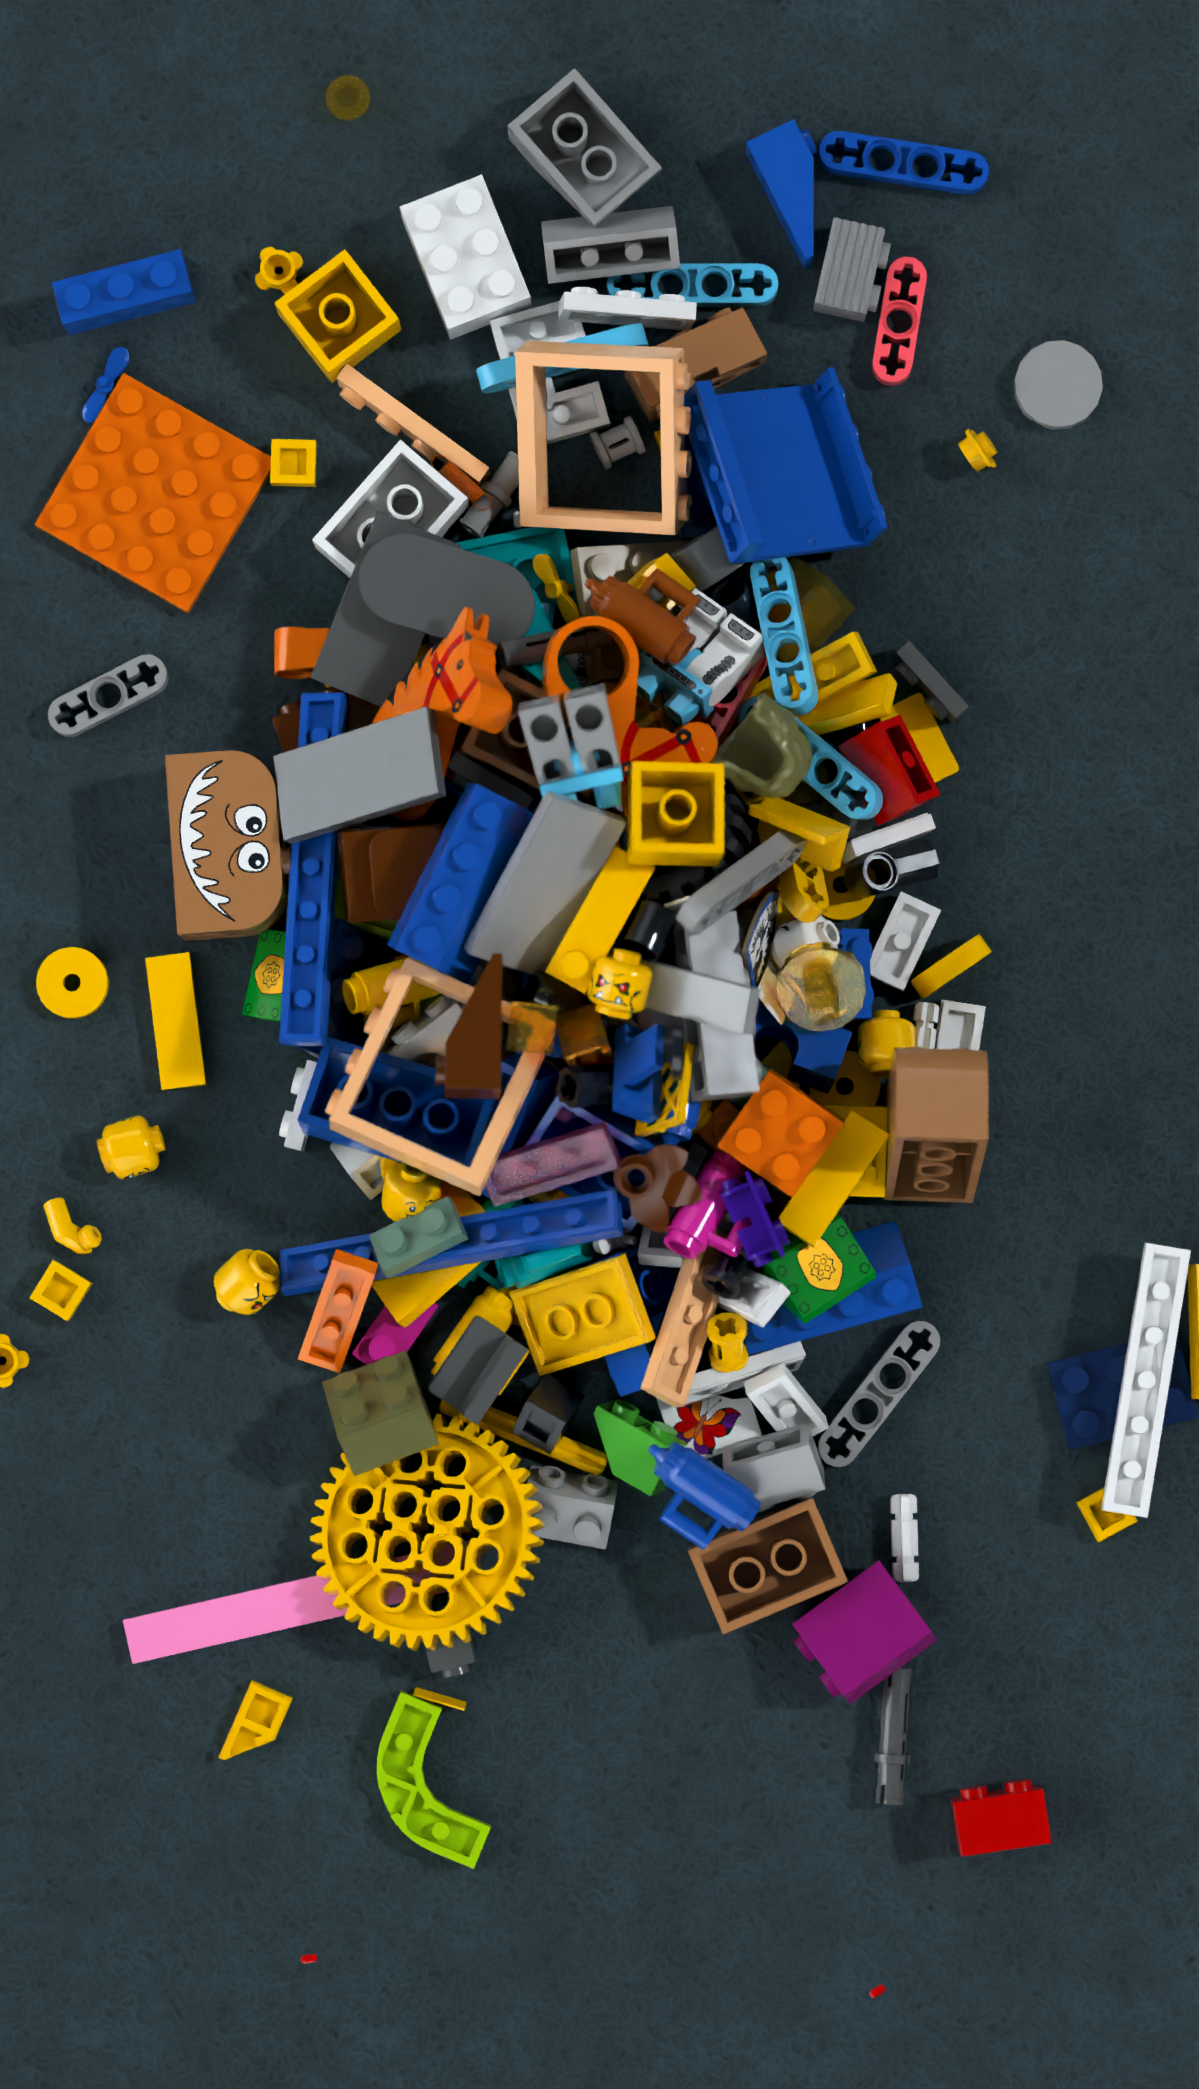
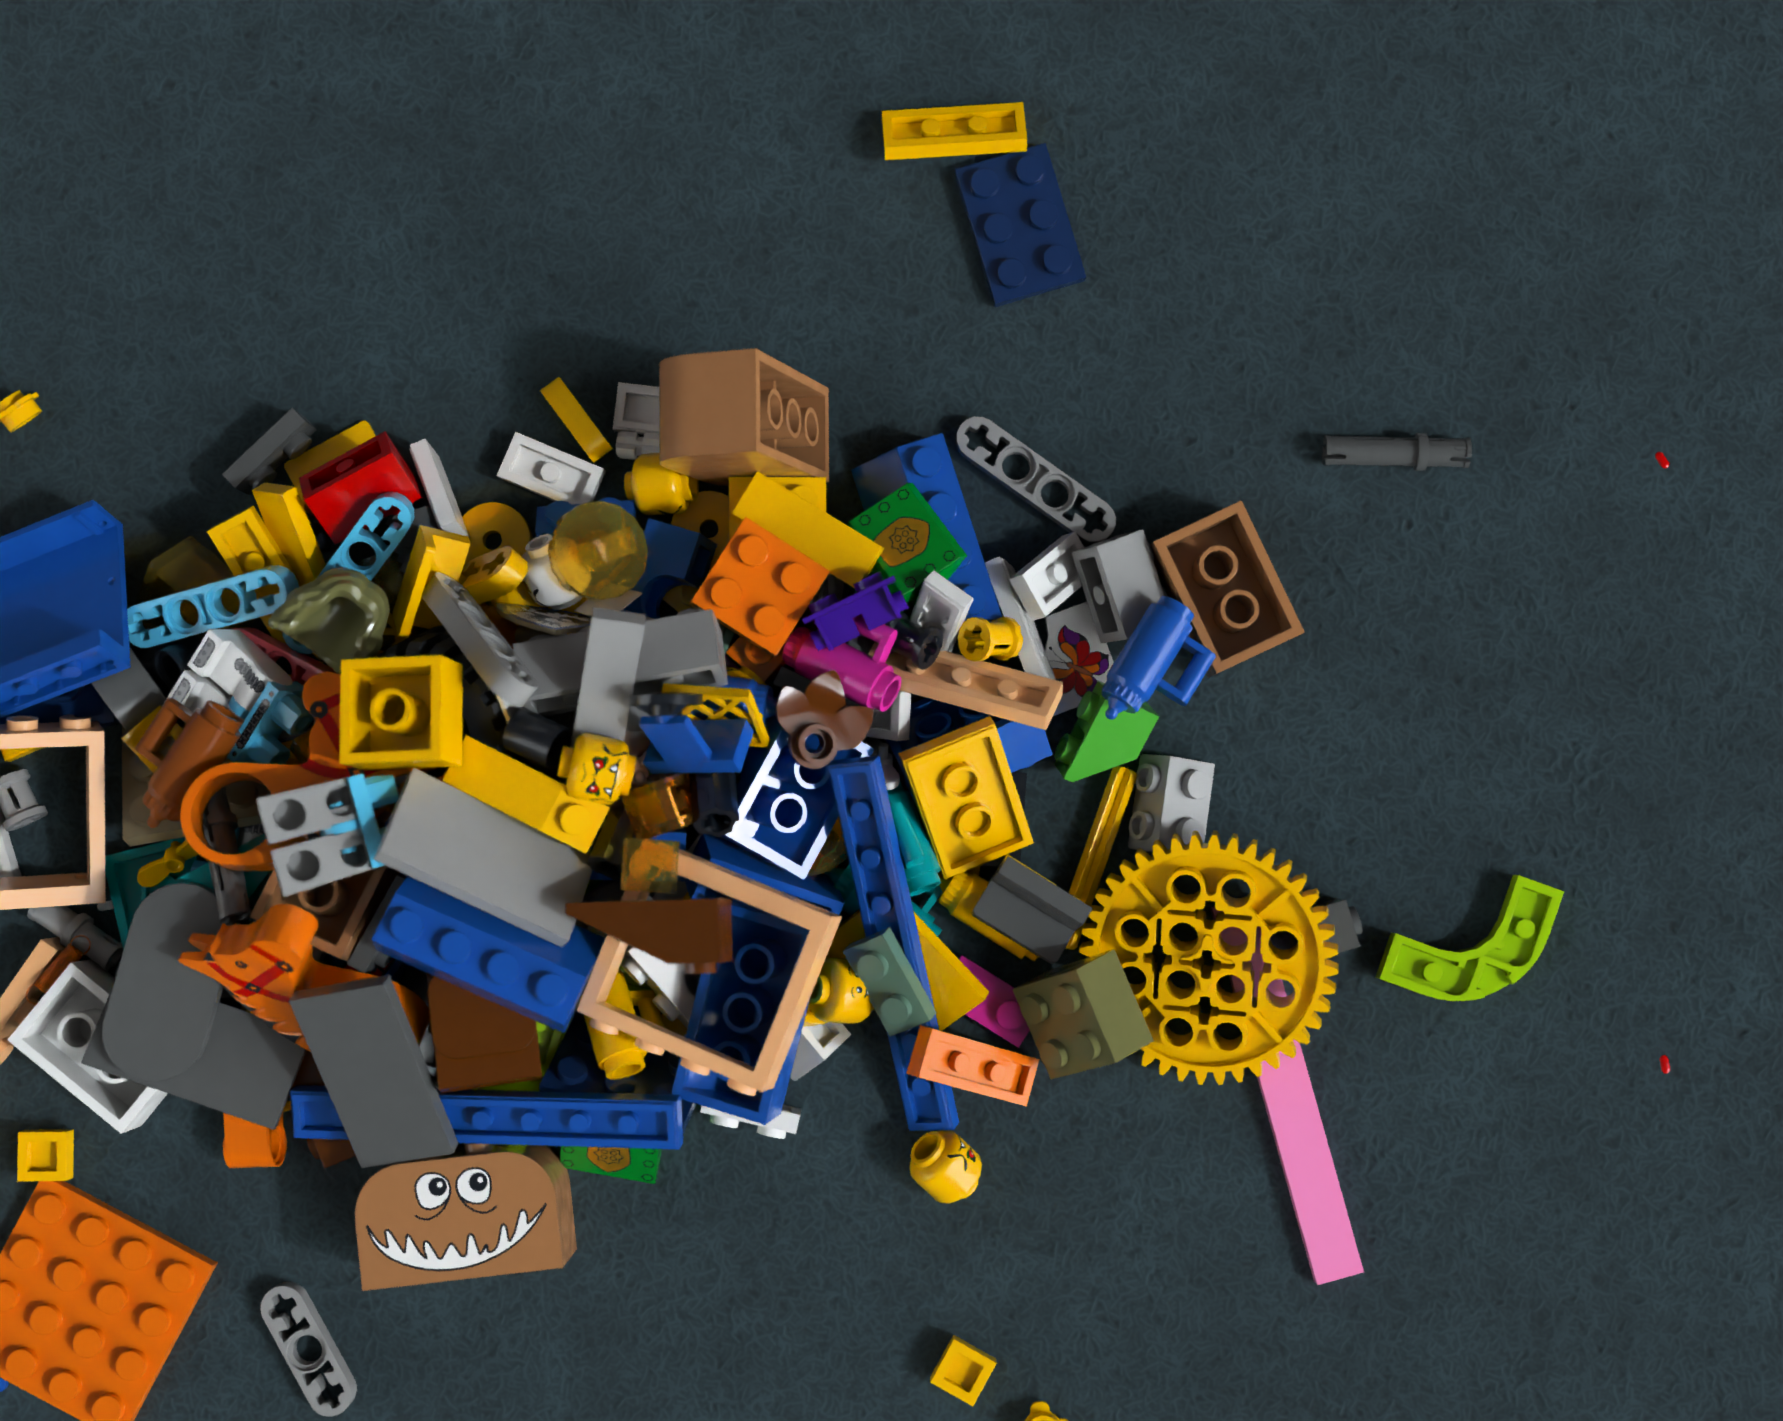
camera: 100 degrees left, 0 degrees up
(52, 977) = (621, 1395): yellow piece -> none
(67, 1233) = (900, 1365): yellow arm -> none
(130, 1147) = (804, 1301): yellow head -> none
(176, 1021) = (664, 1256): yellow tile -> none
(256, 1719) = (1415, 1132): yellow tile -> none
(439, 1698) = (1382, 935): yellow piece -> none
(548, 1413) = (1074, 831): black brick -> none
(552, 1164) = (802, 836): clear pink plate -> none
(862, 1633) = (1292, 485): magenta brick -> none
(892, 869) = (472, 485): black piece -> none
(904, 1537) = (1187, 447): white axle -> none
(1000, 1818) = (1479, 333): red brick -> none
(1102, 1522) = (1148, 237): yellow tile -> none
(1146, 1380) = (1009, 194): white plate -> none

